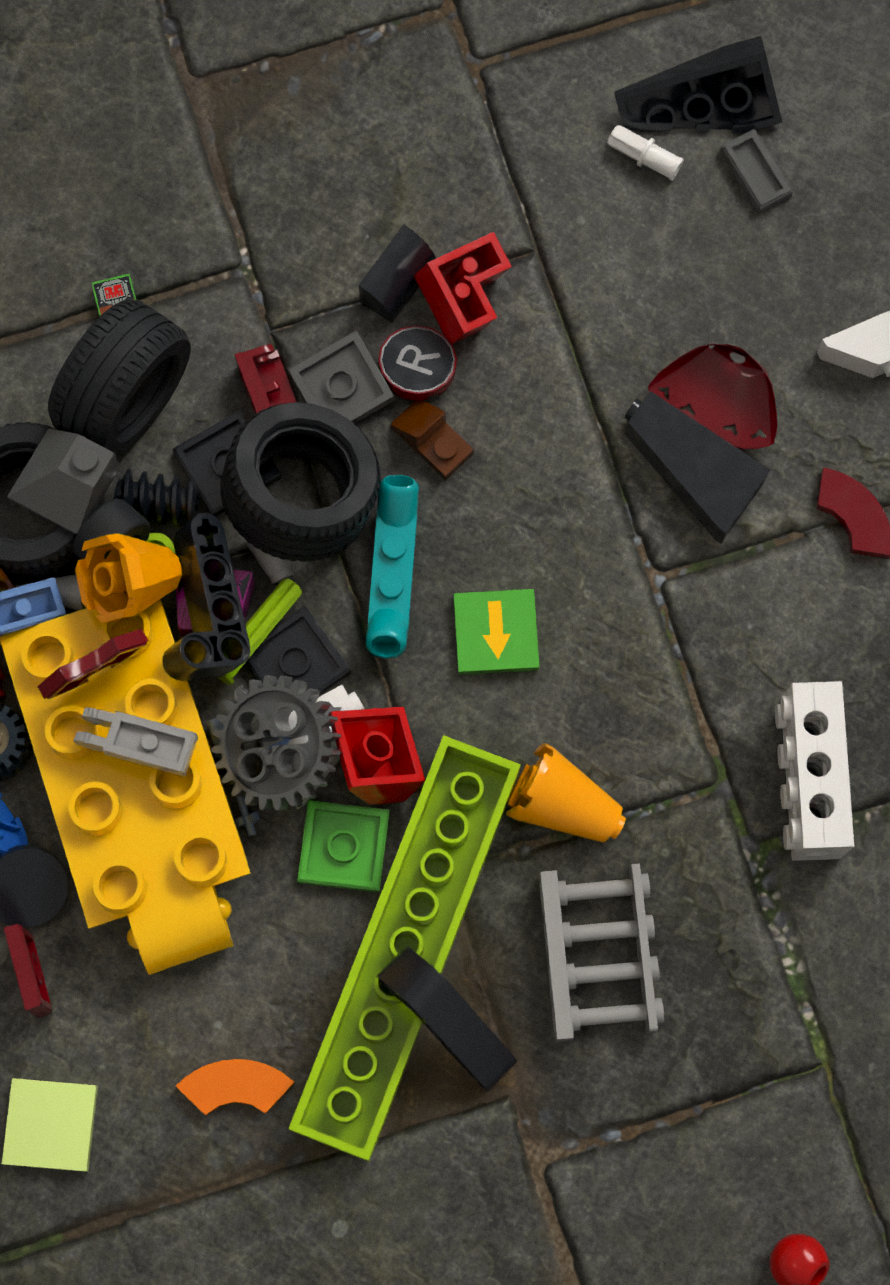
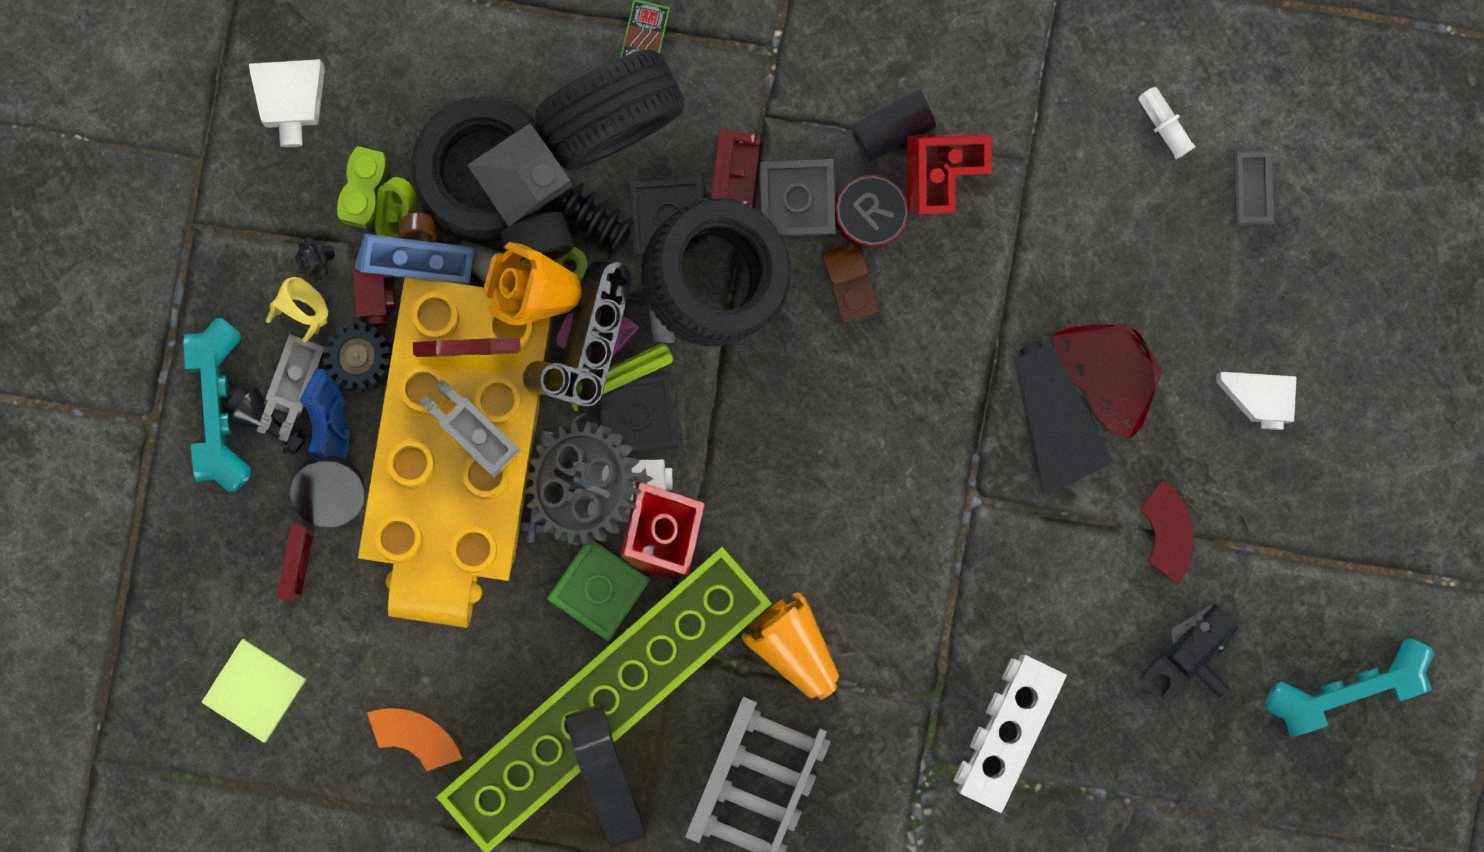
camera: 35 degrees right, 10 degrees up
(392, 567) = (756, 381): teal plate -> none
(496, 631) = (815, 476): bright green tile -> none
(713, 91) = (1256, 97): black wedge -> none

